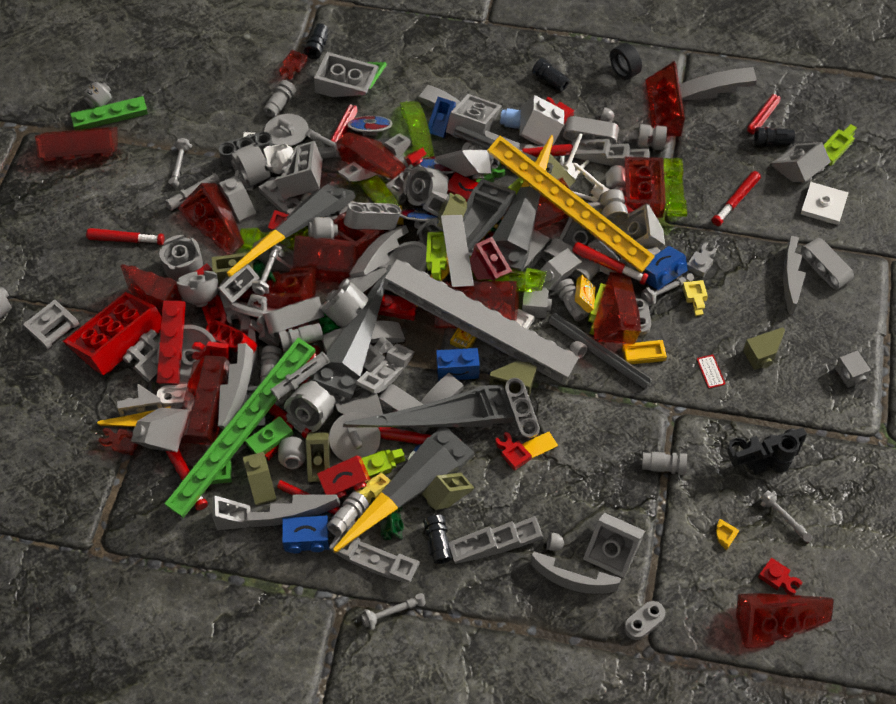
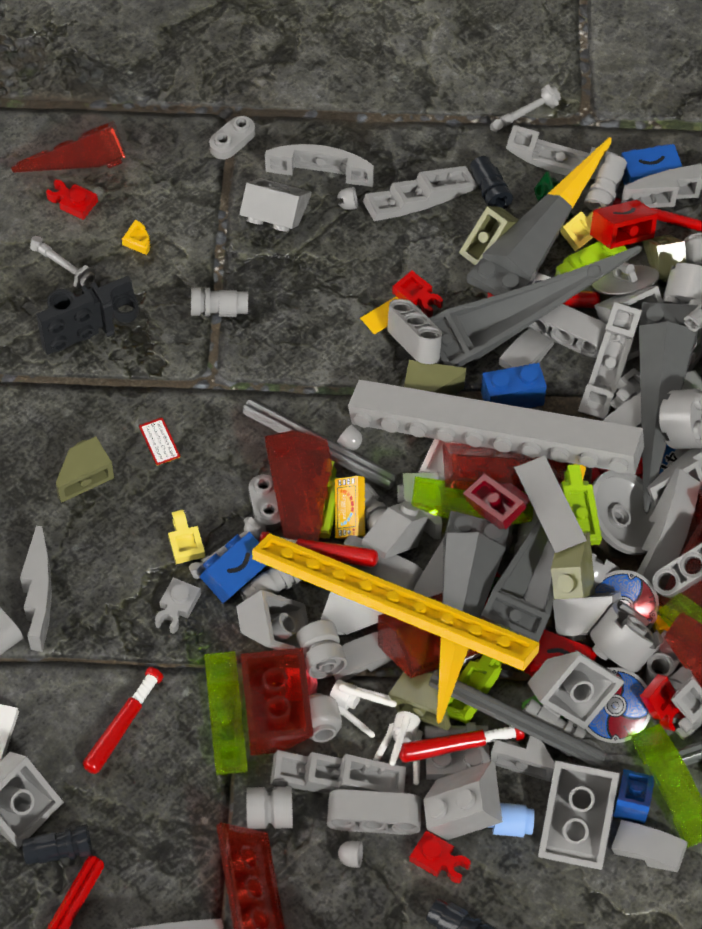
camera: 170 degrees right, 0 degrees up
(644, 352) = (247, 453): yellow tile -> none

